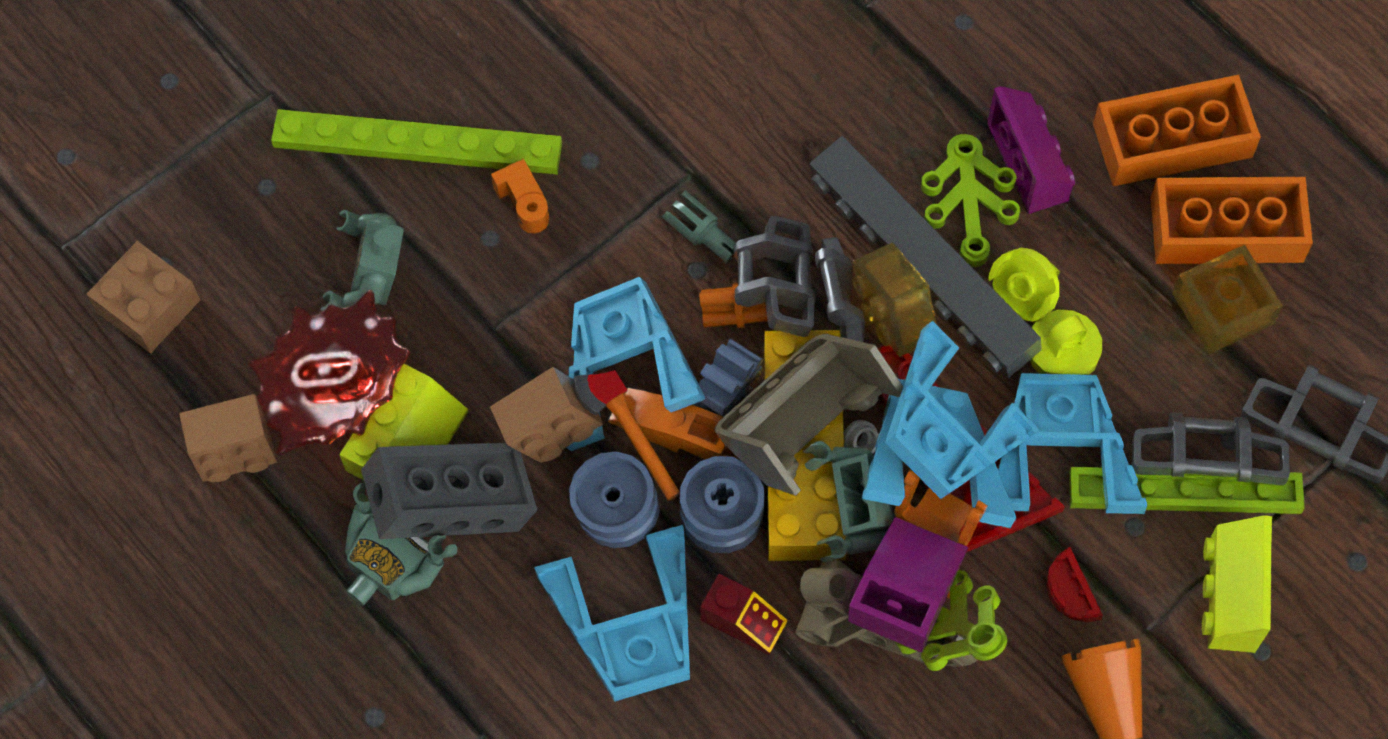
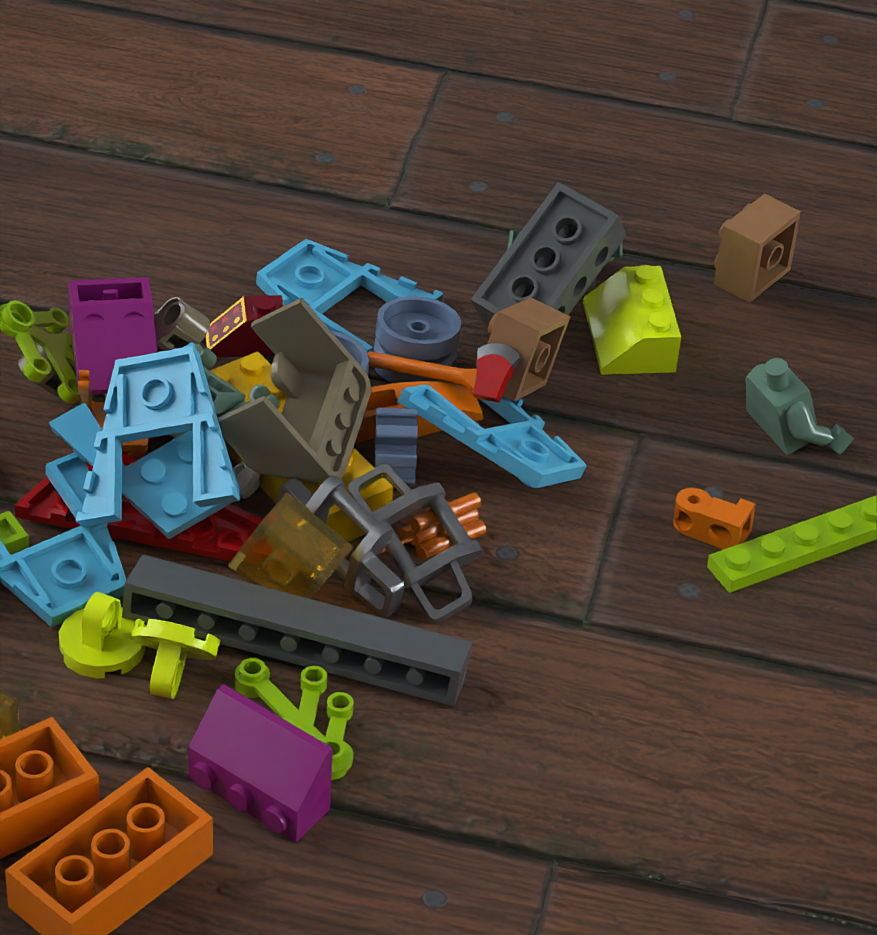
camera: 140 degrees right, 25 degrees down
(329, 373) = (728, 314): clear red piece -> none
(704, 231) = (531, 566): sand green arm -> none

